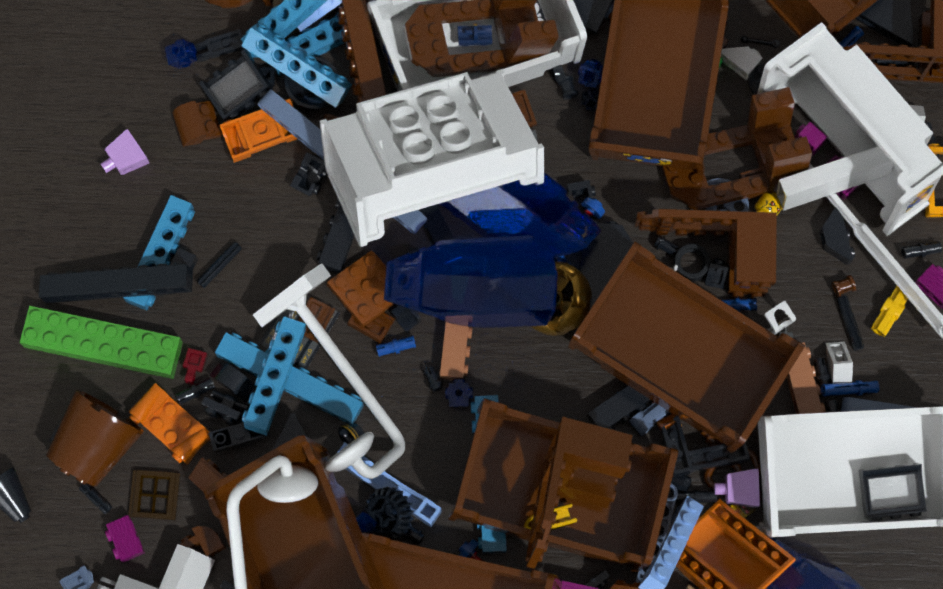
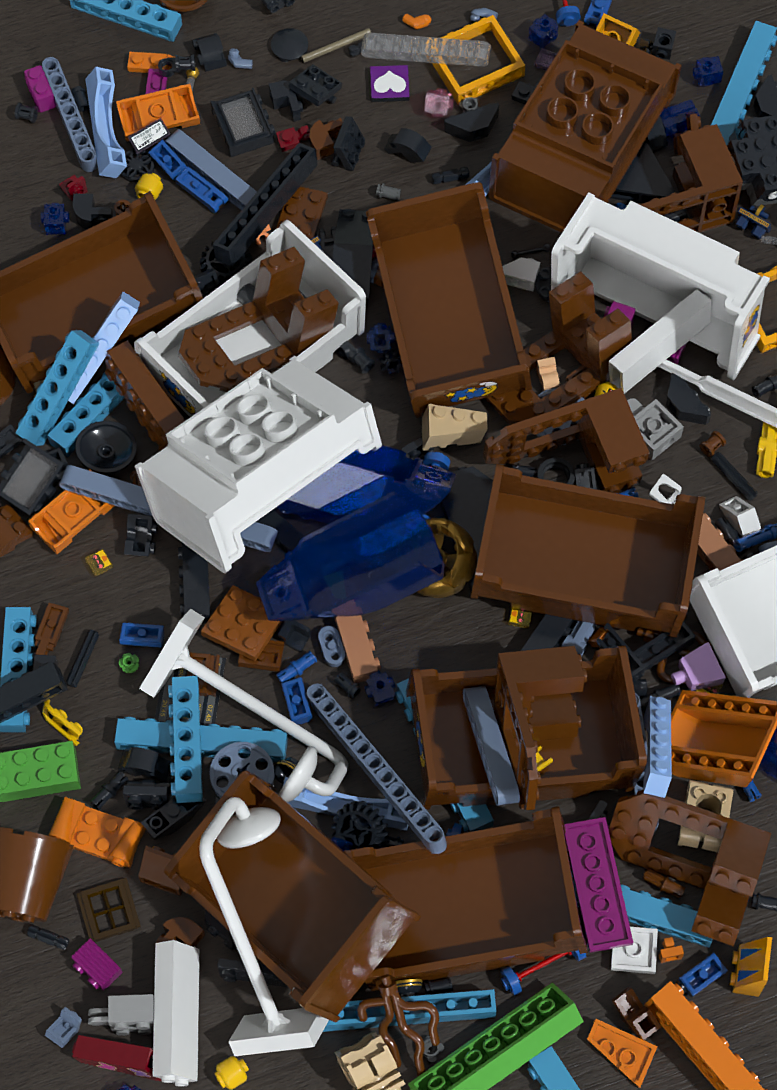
camera: 20 degrees left, 10 degrees down
(177, 311) = (60, 719): none -> yellow piece
(194, 362) = (96, 762): dark red plate -> none
(202, 228) = (50, 628): none -> reddish brown hinge
(255, 44) = (33, 428): dark azure brick -> none
(256, 289) = (129, 668): none -> bright green plate
(267, 184) = (99, 562): none -> clear yellow tile
(277, 264) = (142, 635): none -> blue brick
(311, 415) = (239, 764): none -> sand blue wedge
(384, 376) = (297, 701): none -> blue brick
(423, 474) = (380, 773): none -> sand blue beam
(432, 339) = (331, 647): none -> sand blue plate
(475, 35) = (251, 340): dark blue hips -> none
(526, 490) = (491, 745): none -> sand blue beam
(606, 378) = (520, 618): none -> clear yellow tile
(619, 181) = (452, 426): none -> tan wedge
(725, 164) = (547, 373): none -> light nougat leg
(795, 249) = (659, 423): none -> light grey brick

